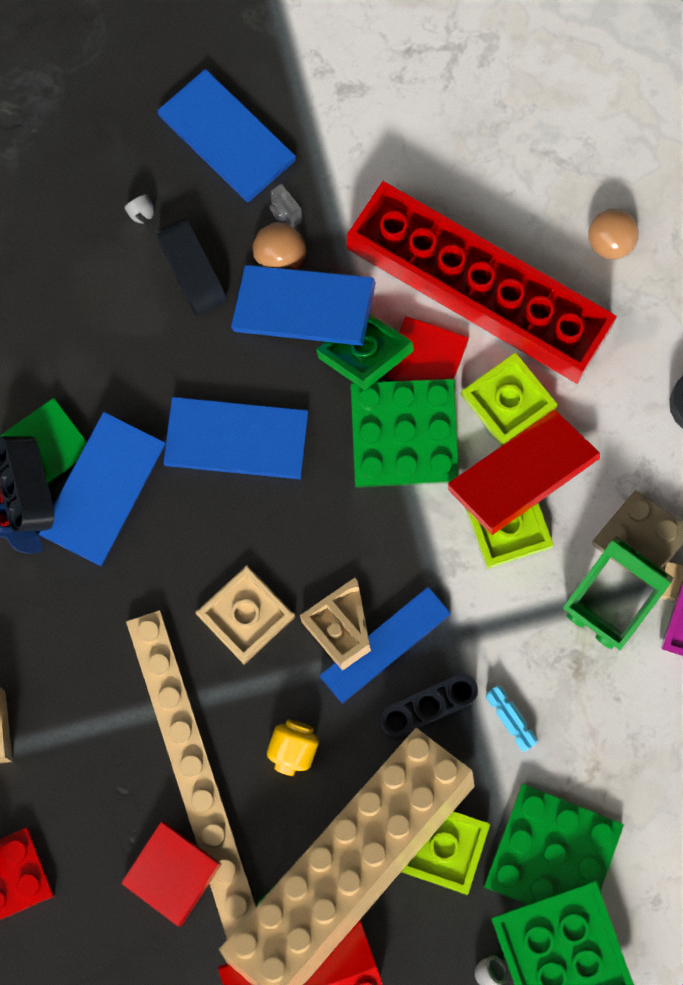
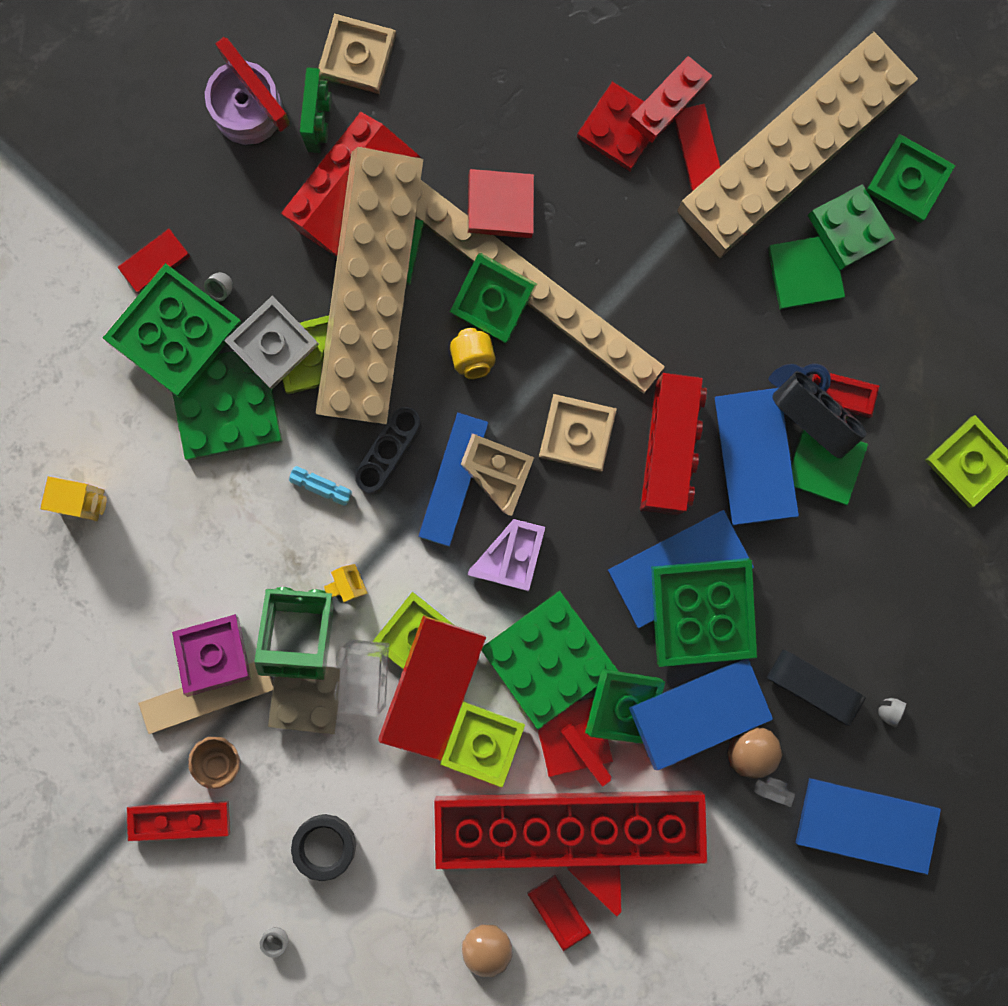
camera: 145 degrees right, 10 degrees up
(170, 541) = (671, 444): none -> red brick
(238, 785) = (493, 297): none -> green plate
(242, 385) = (704, 612): none -> green plate
(378, 542) = (511, 556): none -> lavender wing
(425, 331) = (586, 754): none -> red tile
(474, 876) = (271, 342): none -> light grey plate
(481, 220) = (602, 882): none -> red slope
(532, 227) = (559, 912): none -> red tile
(543, 612) = (347, 583): none -> yellow tile
(580, 518) = (362, 677): none -> clear brick

